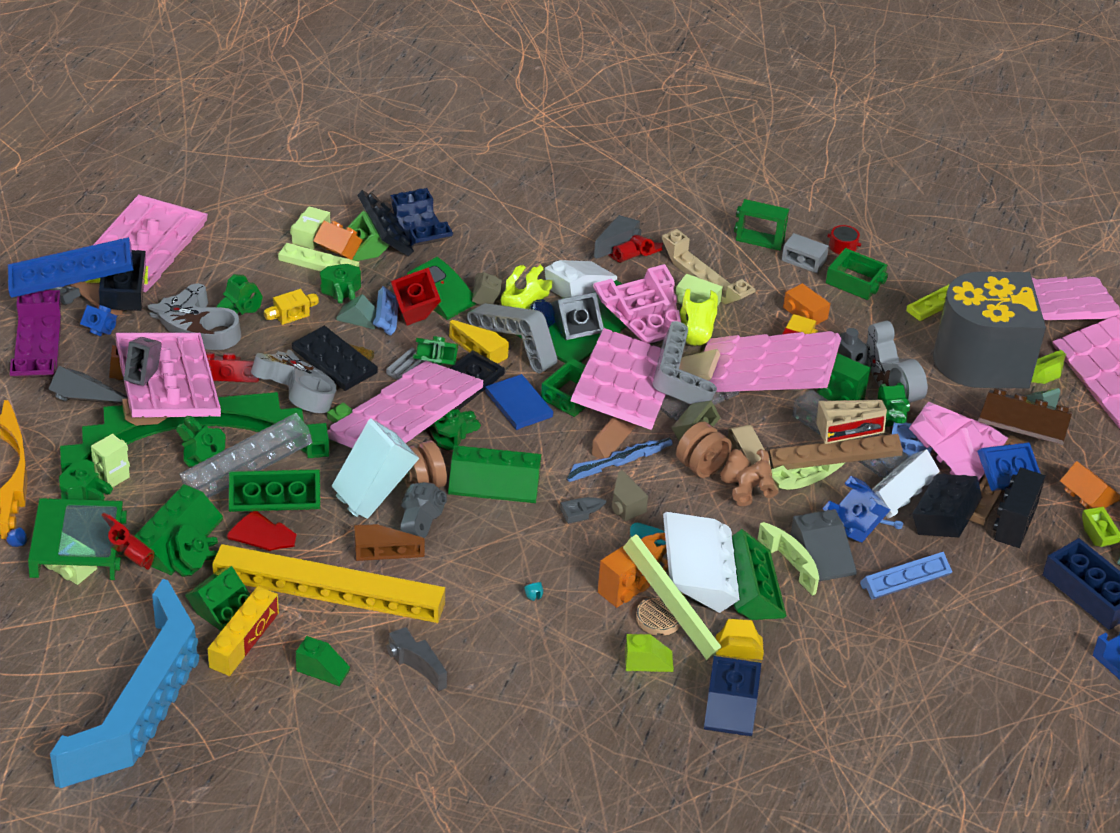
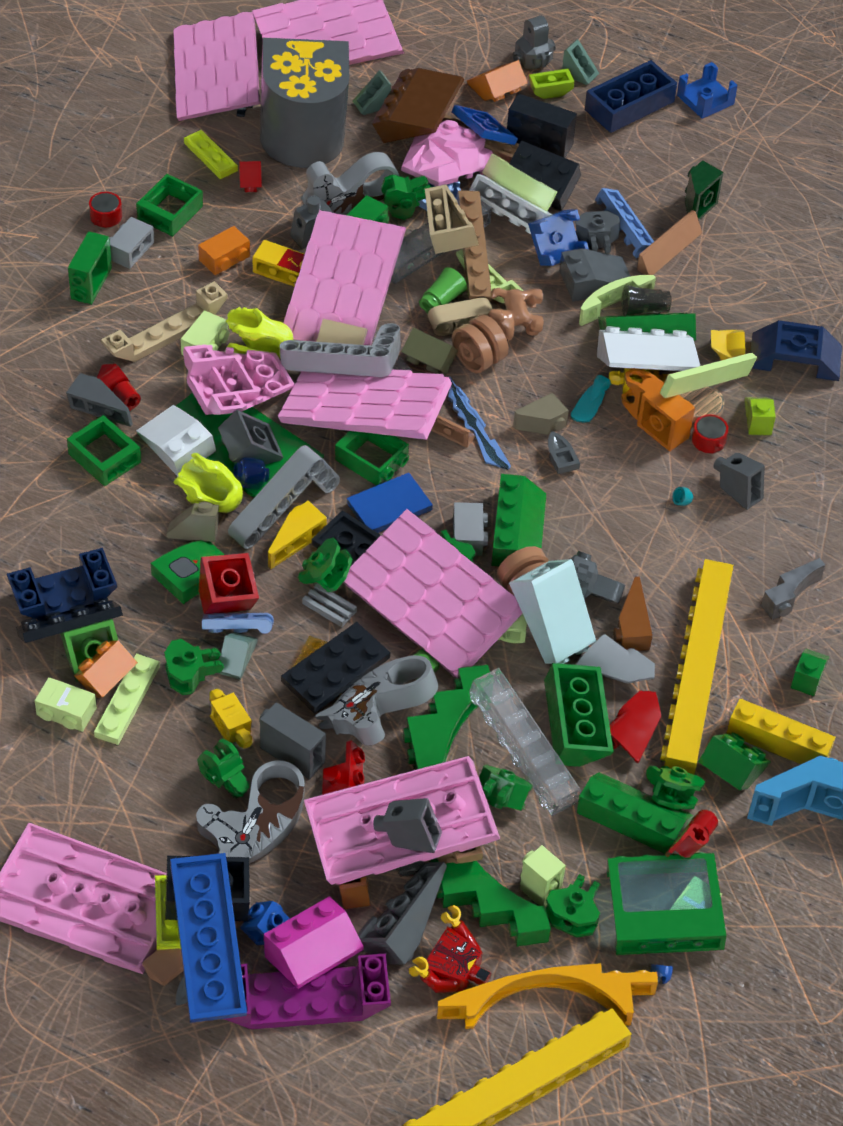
camera: 90 degrees left, 10 degrees up
(48, 416) = (453, 960): none -> red torso
(74, 339) = (312, 942): none -> slope
(259, 330) = (292, 739): none -> dark grey brick
(334, 527) = (617, 662): none -> light grey panel
(488, 437) = (469, 524): none -> light grey brick
(546, 244) = (115, 465): none -> green window
(550, 627) = (741, 479): none -> dark grey torso
(615, 615) = (710, 433): none -> piece
(776, 435) = (444, 289): none -> bright green plant
(788, 575) = (645, 300): none -> clear smoke plant
(876, 546) = (598, 231): none -> dark grey hinge
(879, 605) = (669, 244): none -> nougat slope
(908, 319) = (250, 175): none -> red slope
(914, 489) = (519, 182): none -> yellowish green slope
(950, 624) = (703, 188): none -> dark green slope

